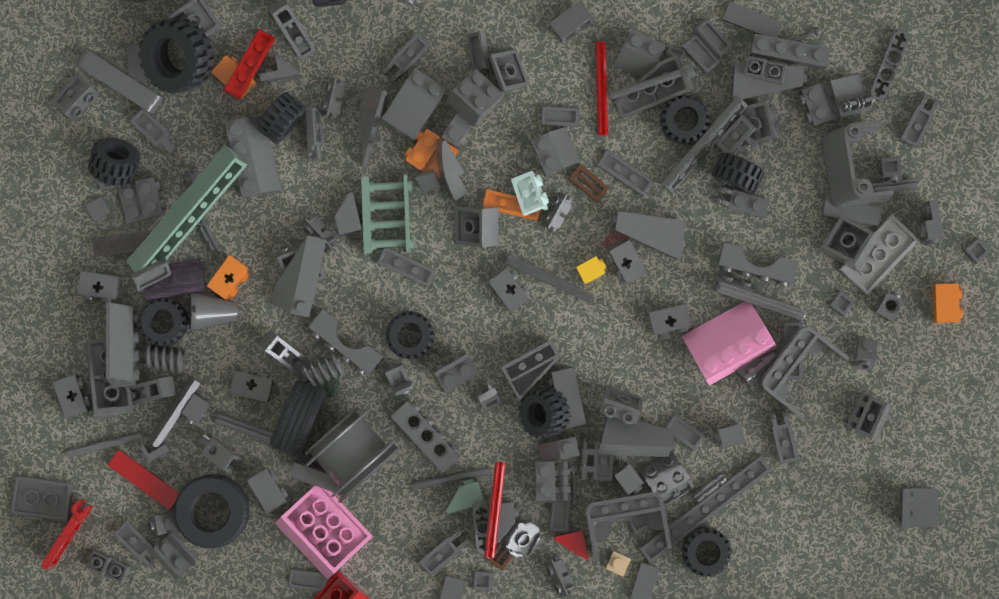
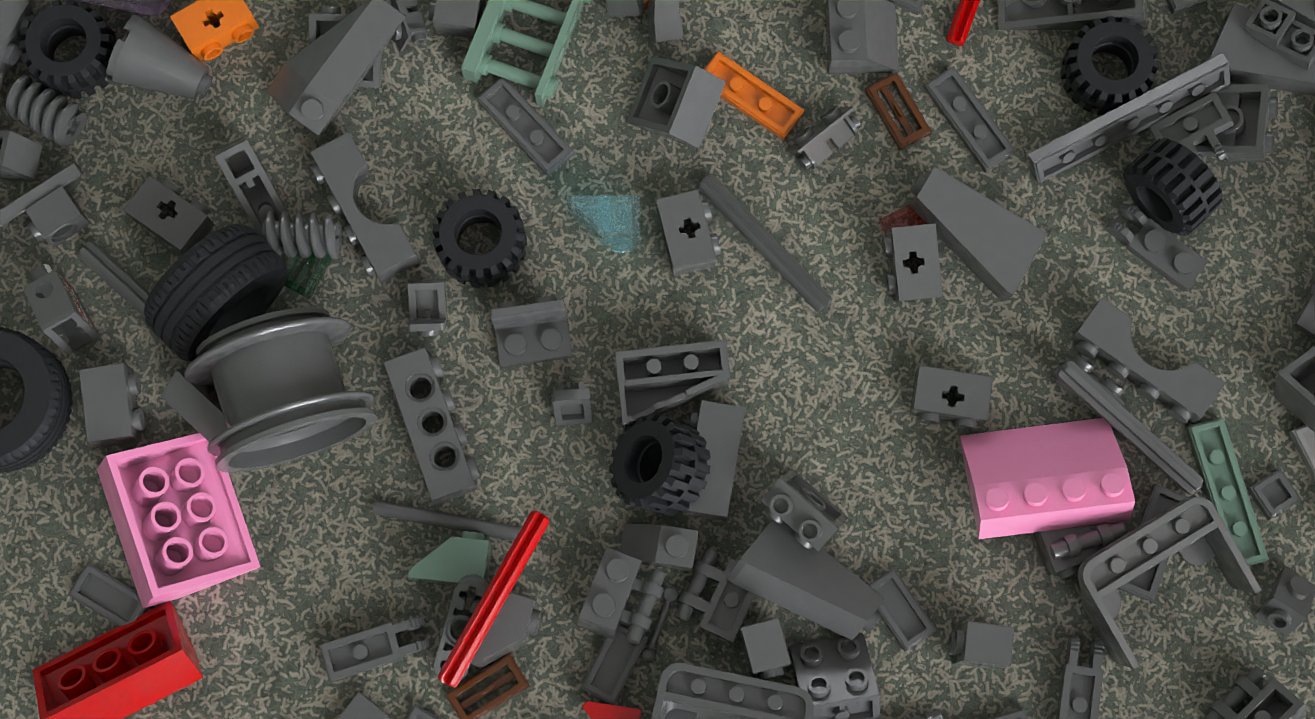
camera: 20 degrees right, 10 degrees down
(469, 299) = (609, 219): none -> clear light blue slope
(522, 538) = (524, 679): tile -> none
(530, 193) = (791, 82): light aqua bracket -> none
(591, 269) = (845, 255): yellow brick -> none
(819, 312) = (1226, 486): none -> sand green tile

